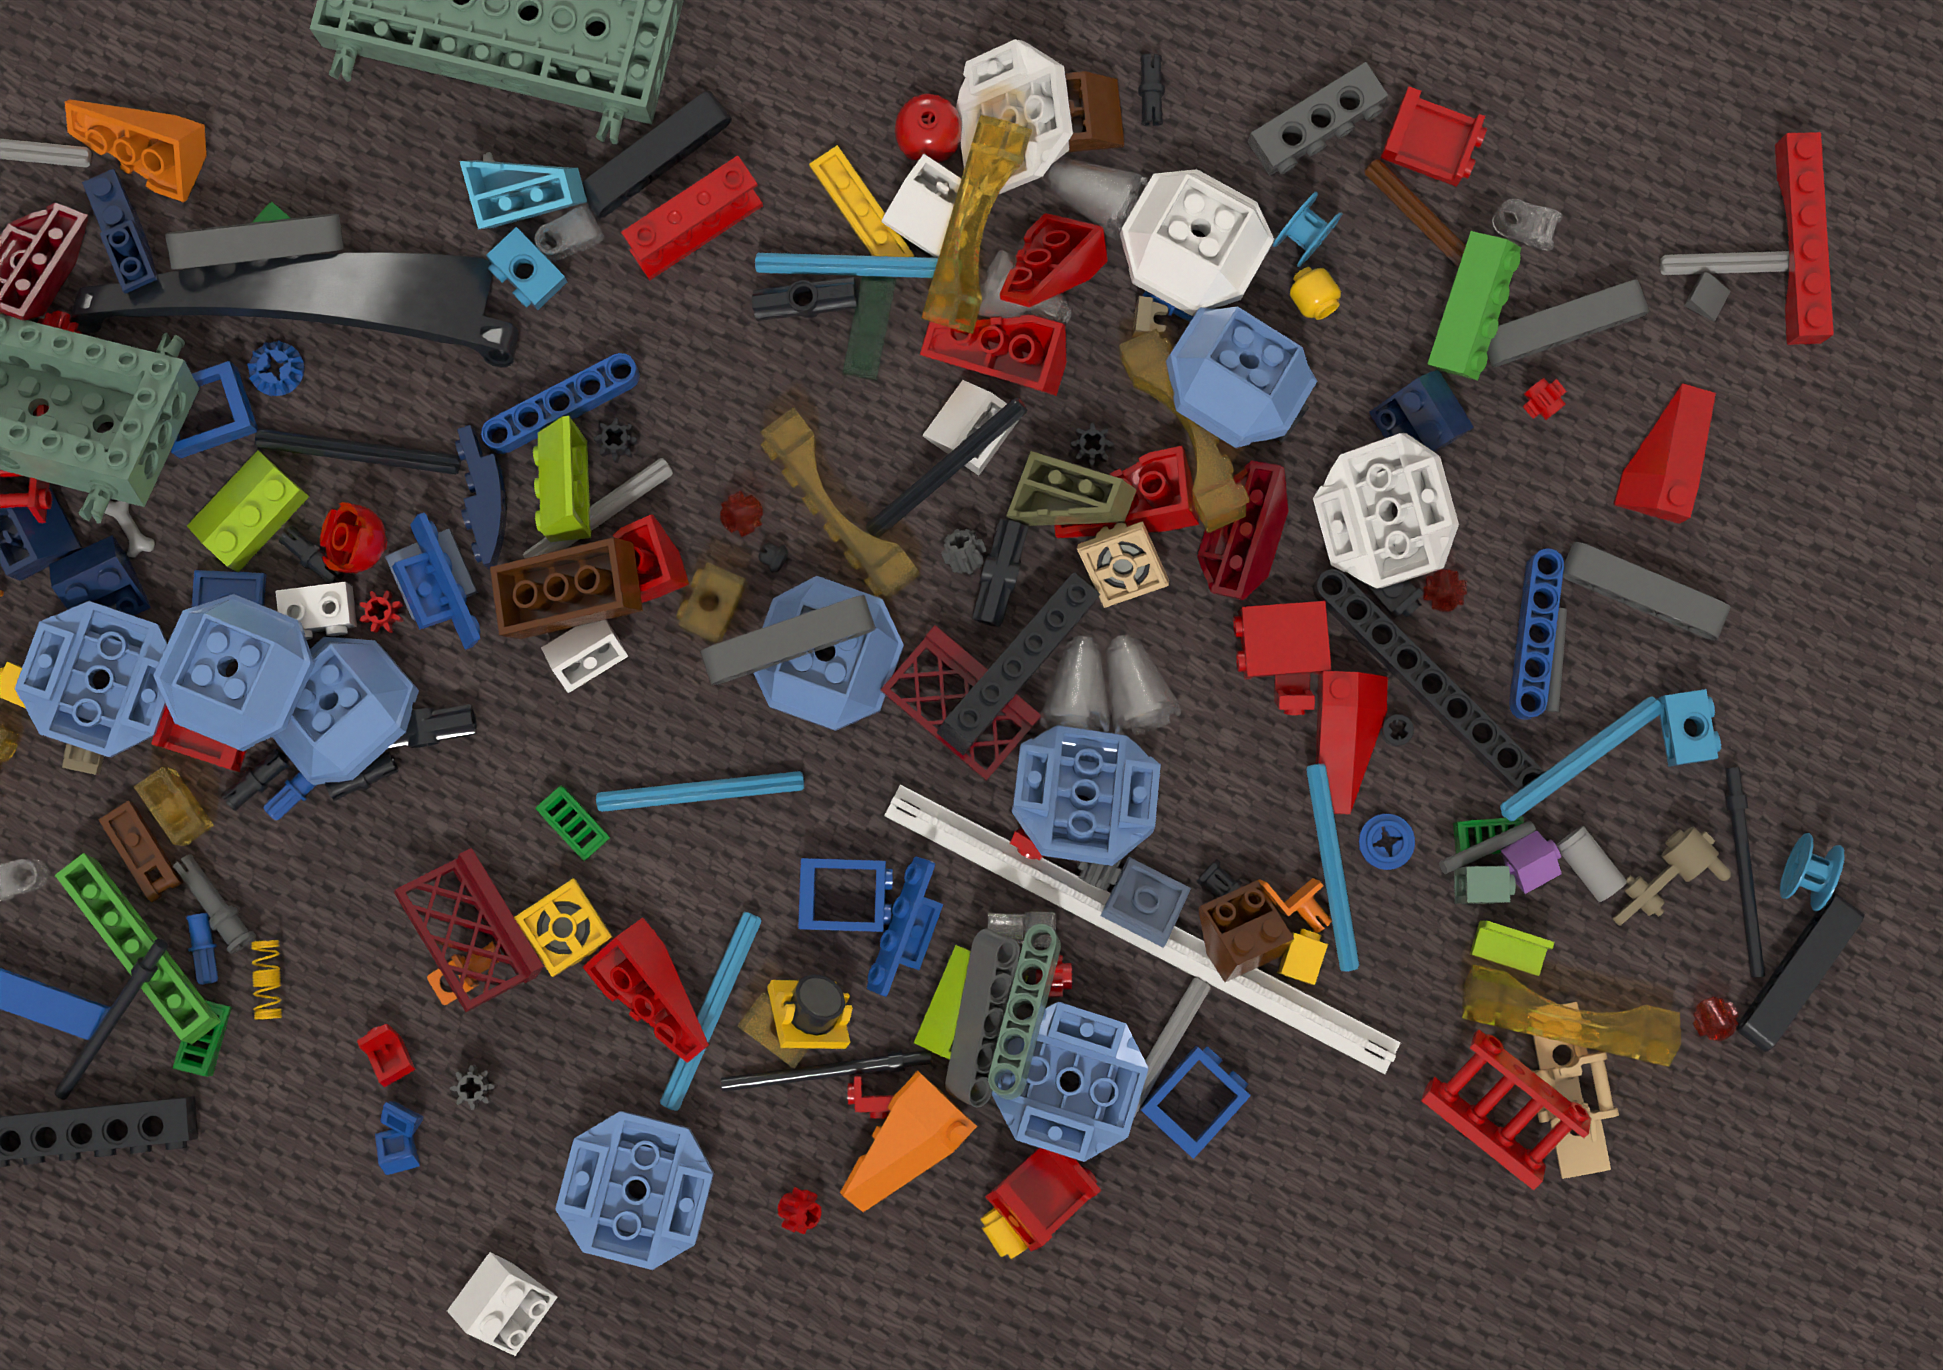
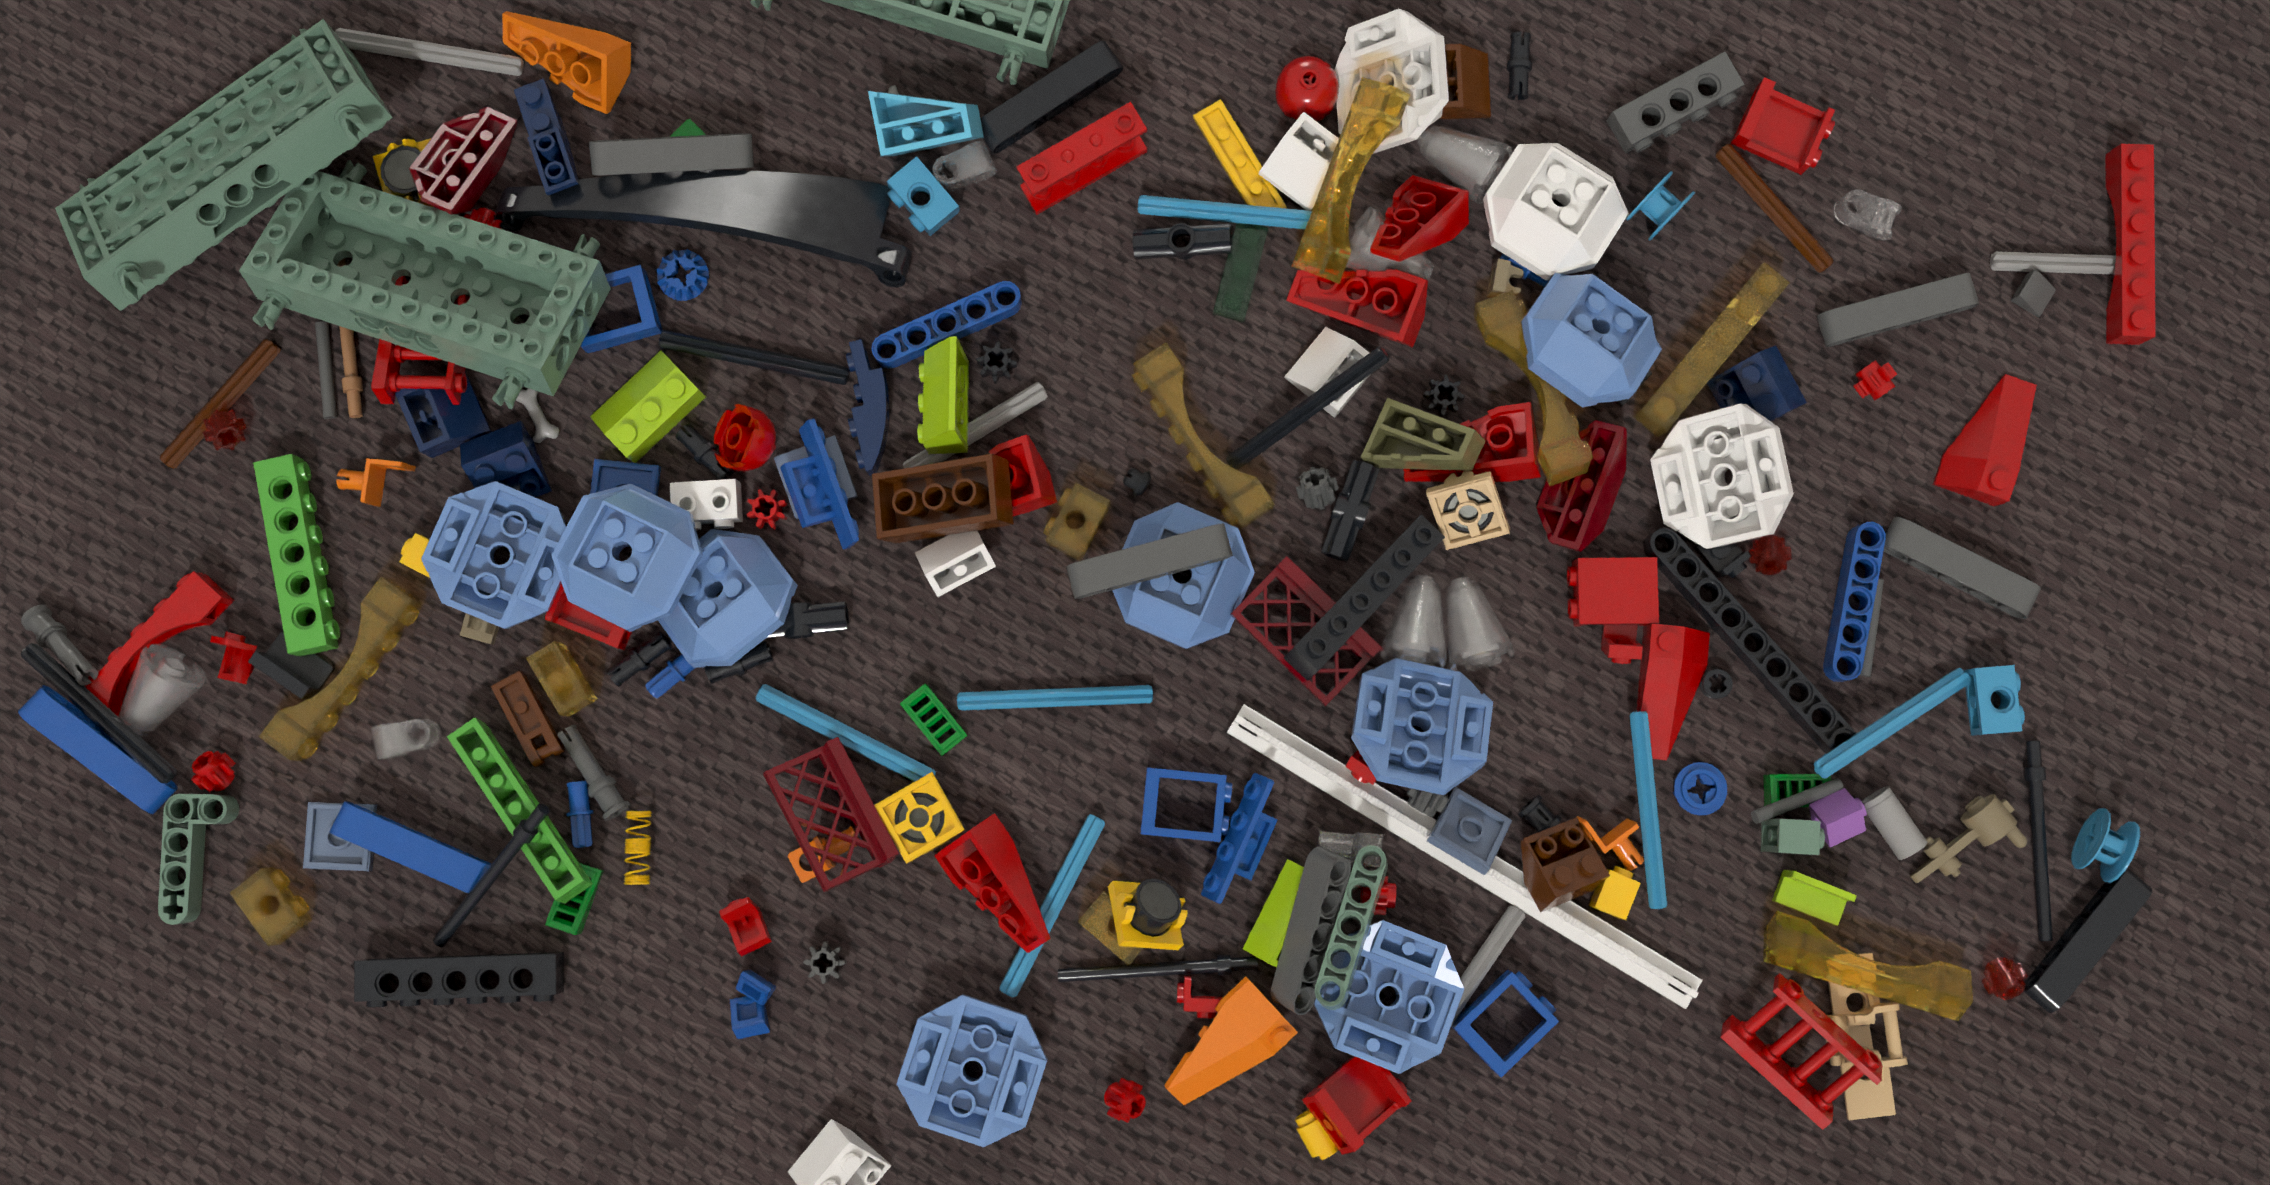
camera: 10 degrees right, 0 degrees up
(482, 846) = (848, 736): none -> dark azure axle
(741, 513) = (1110, 439): clear red gear -> none
(1315, 293) = (1663, 266): yellow head -> none
(1370, 378) = (1711, 350): none -> clear yellow arch
(1475, 305) = (1815, 287): bright green brick -> none

